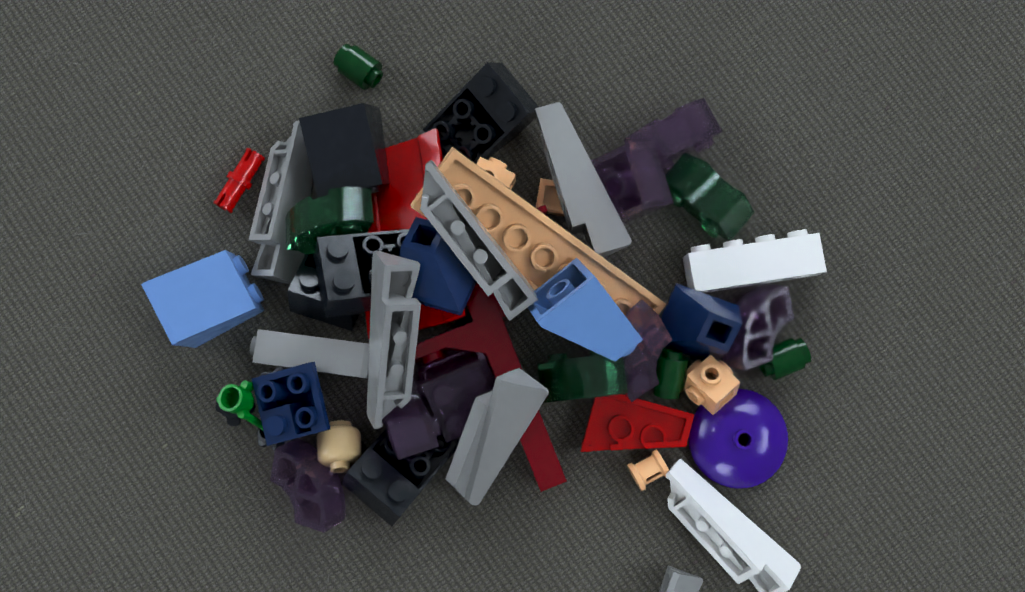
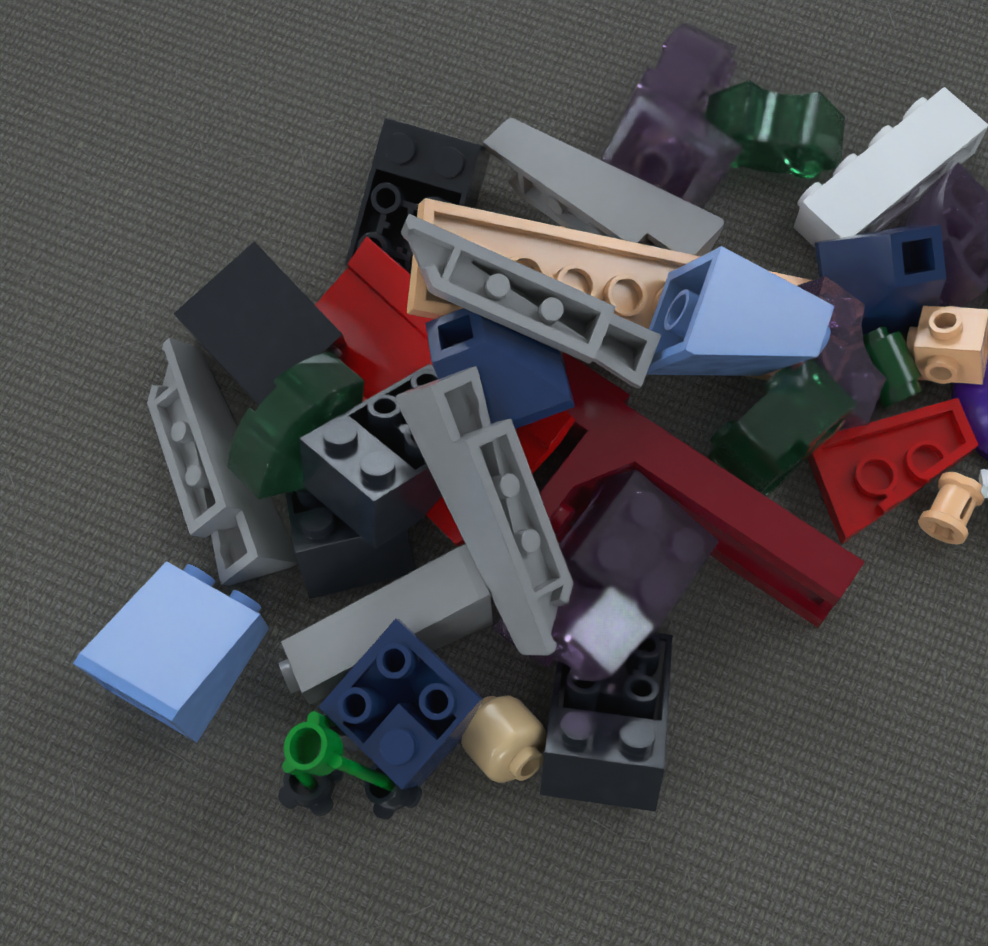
camera: 30 degrees left, 15 degrees down
(239, 180) = (127, 469): red pin -> none
(312, 488) = (498, 818): clear purple brick -> none
(358, 66) = (208, 232): dark green brick -> none
(493, 432) = (718, 565): light grey wedge -> none

